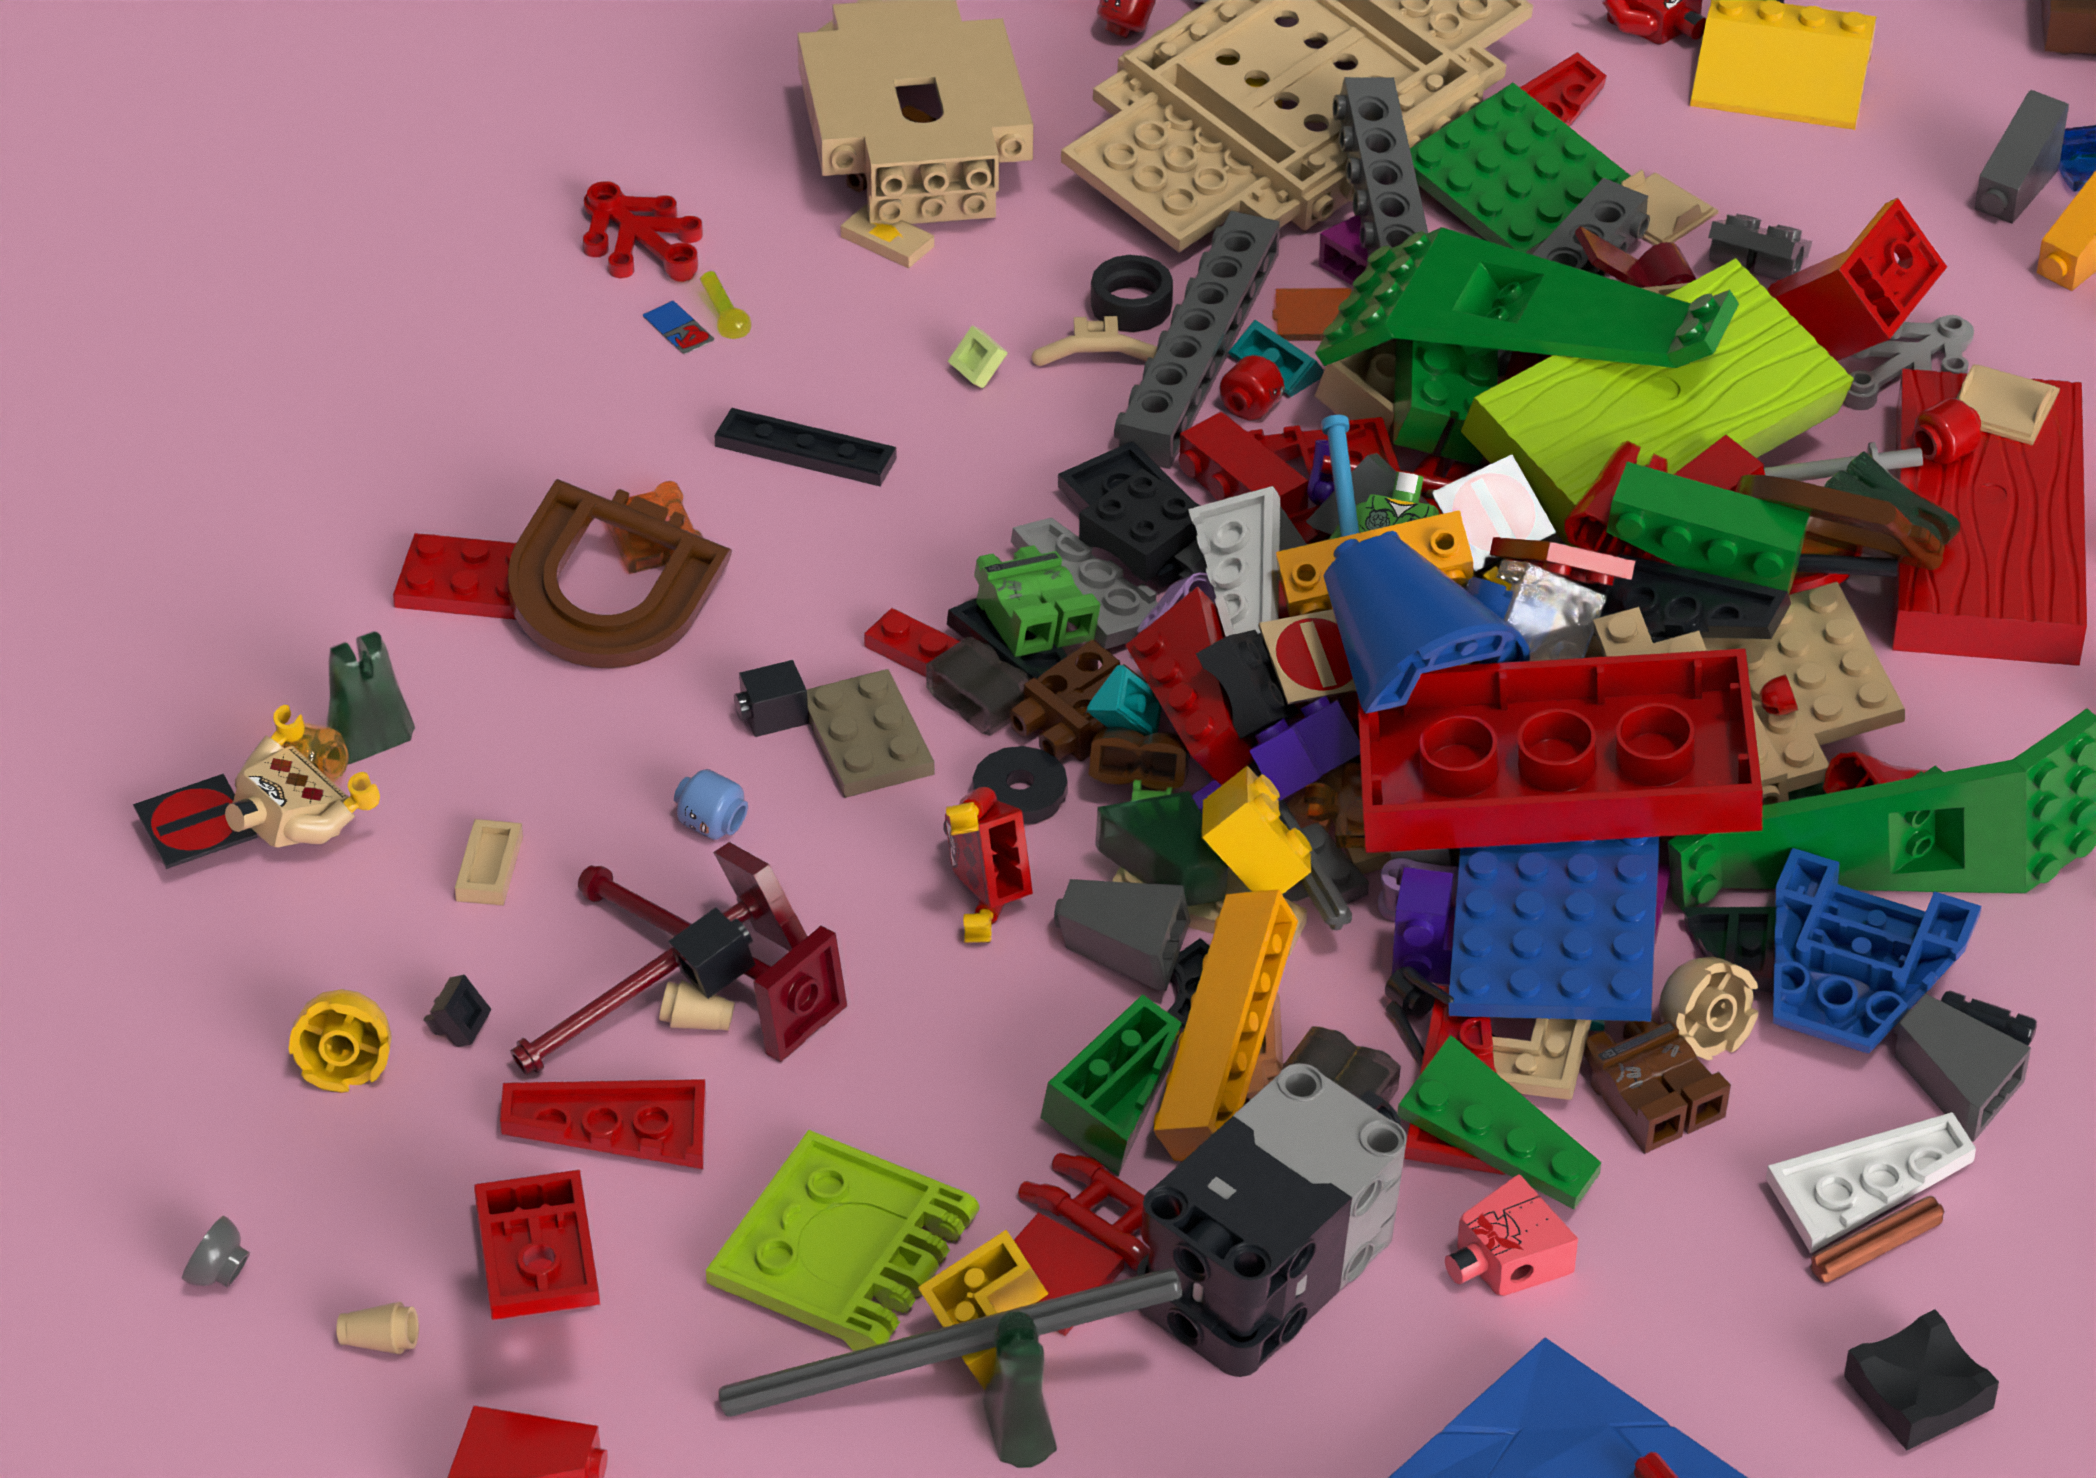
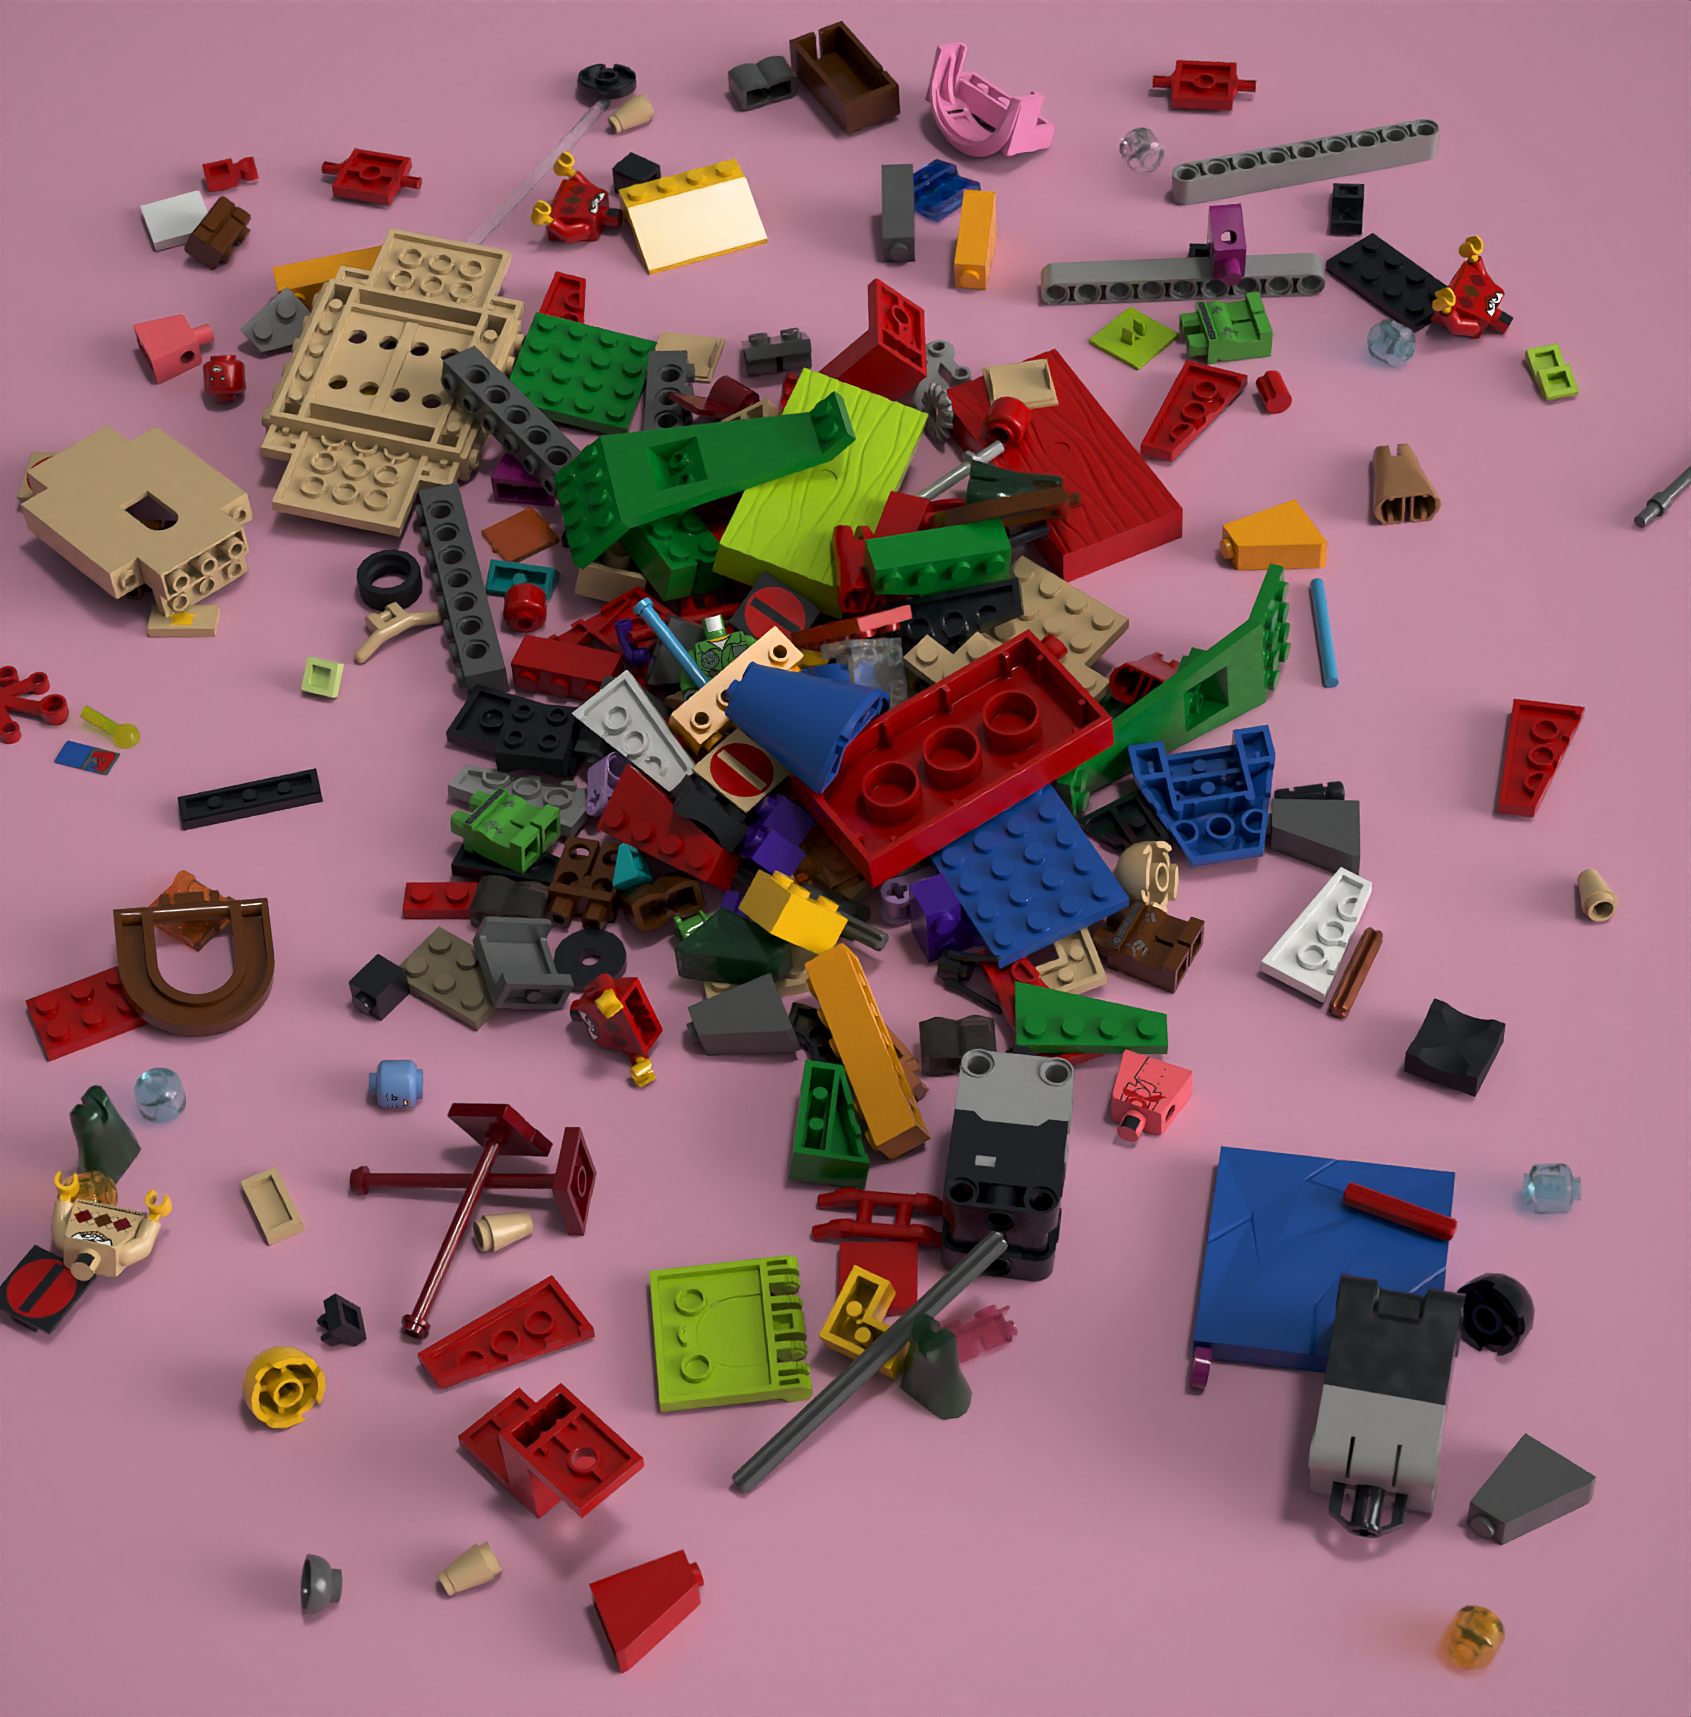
camera: 30 degrees left, 5 degrees up
(463, 691) = (160, 1095): none -> clear light blue head
(713, 952) = (498, 1185): black brick -> none
(934, 744) = (520, 964): none -> dark grey panel
(1084, 1381) = (988, 1327): none -> clear pink hinge
(1887, 391) = (939, 424): none -> light grey gear

